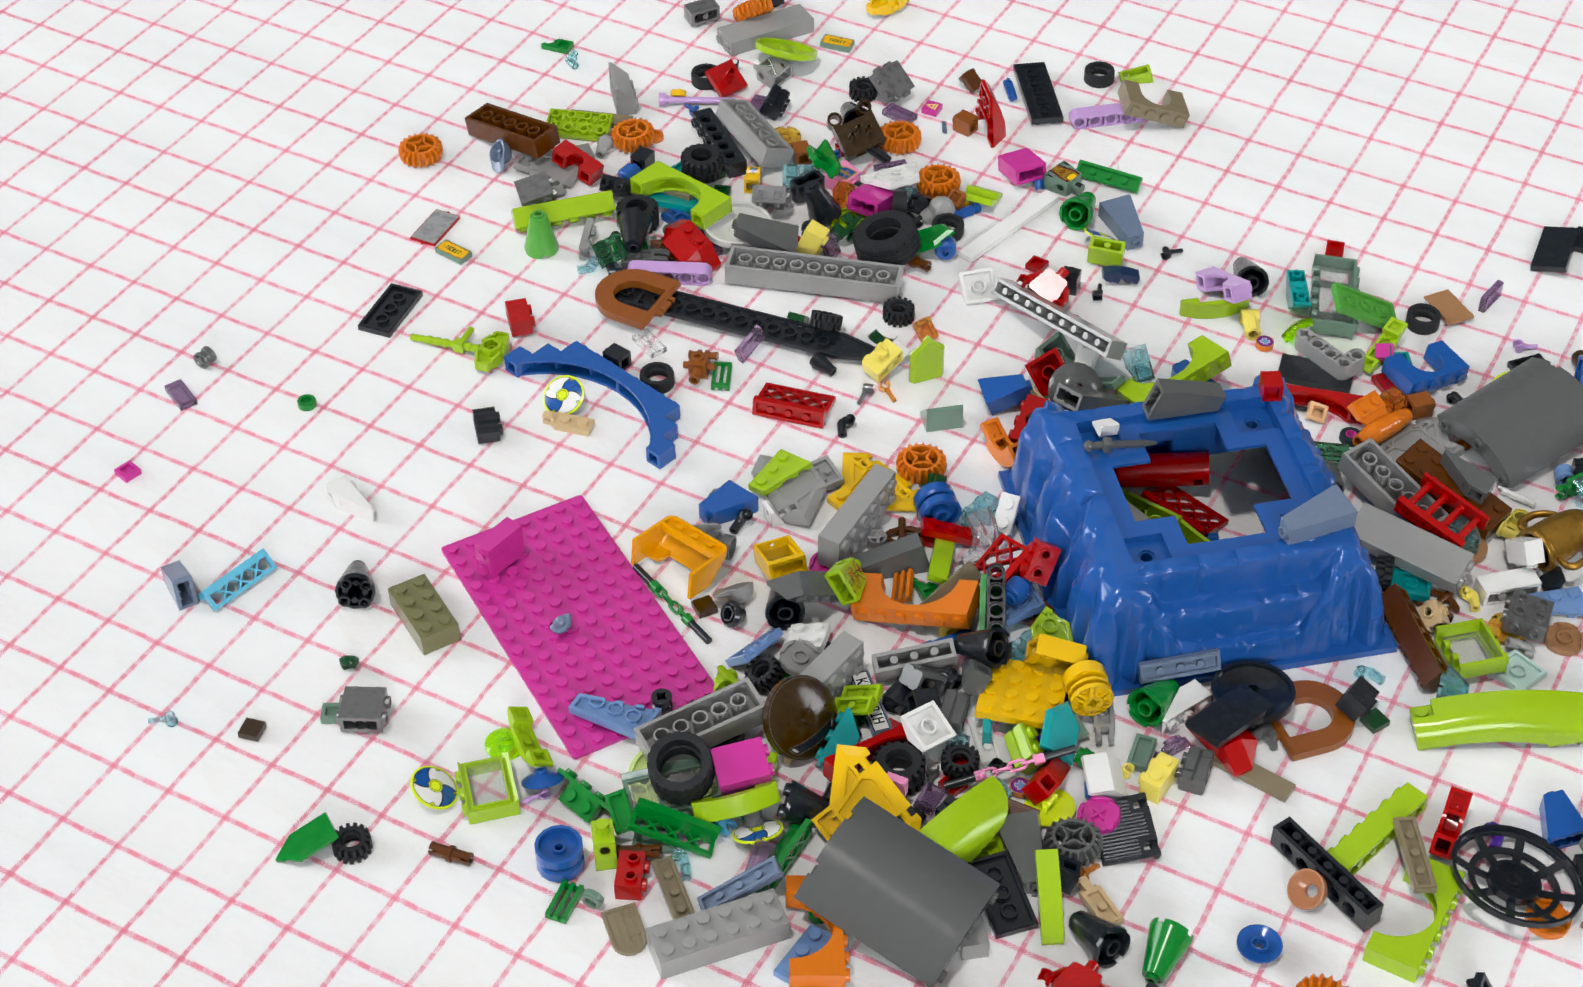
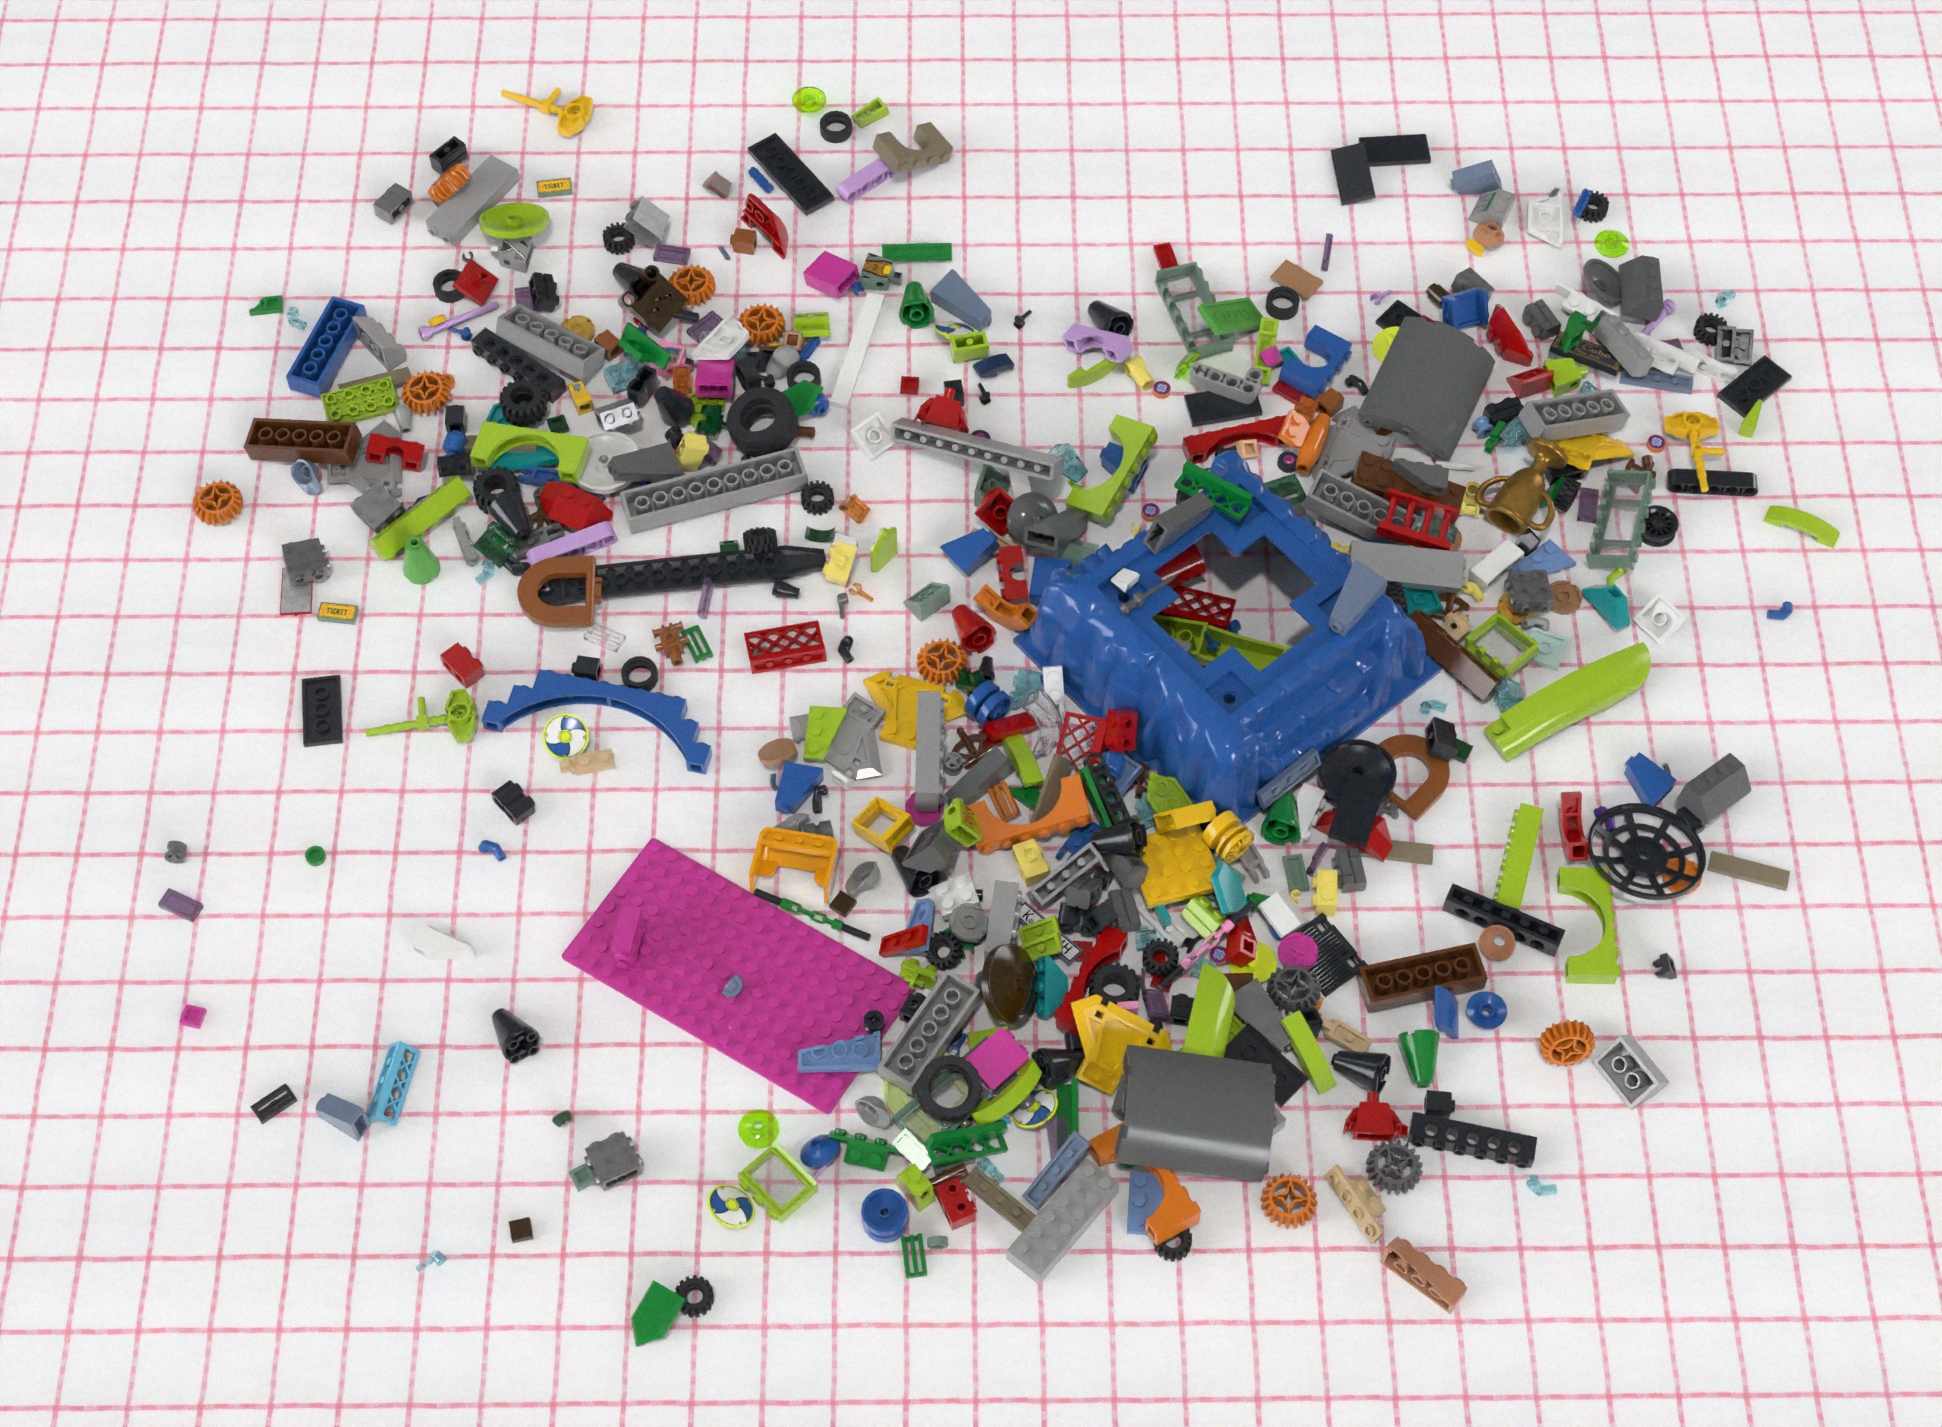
camera: 30 degrees left, 15 degrees up
(137, 555) = (275, 1106): none -> black tile
(424, 614) = (598, 1035): olive brick -> none
(448, 452) = (493, 847): none -> blue arm
(451, 853) = (787, 1261): reddish brown pin -> none
(453, 207) = (305, 561): none -> flat silver brick
(524, 738) = (778, 1119): lime slope -> none
(576, 81) = (325, 348): none -> blue brick
(610, 767) = (873, 1111): none -> light grey piece
(625, 929) = (980, 1255): dark tan window -> none
(732, 613) = (875, 901): black cone -> none
(732, 649) = (903, 940): none -> red plate
(733, 472) = (776, 751): none -> medium nougat tile
(893, 635) = (1030, 862): none -> light yellow brick
(926, 727) = (1121, 941): white slope -> none
(932, 108) = (699, 234): dark pink tile -> none
(958, 483) = (987, 668): none -> black cone
(964, 451) = (972, 629): none -> red cone
(1088, 50) = (809, 99): none -> clear neon green dish
(1112, 382) = (1059, 497): sand green tile -> none
(1208, 886) = (1415, 977): none -> reddish brown brick
(1213, 924) = (1446, 1012): none -> blue slope
(1240, 390) = (1217, 488): none -> green fence
(1270, 386) = (1241, 472): red panel -> none
(1297, 290) = (1161, 319): teal slope -> none
(1414, 855) = (1562, 870): dark tan tile -> none
(1524, 551) = (1497, 528): white hinge -> none

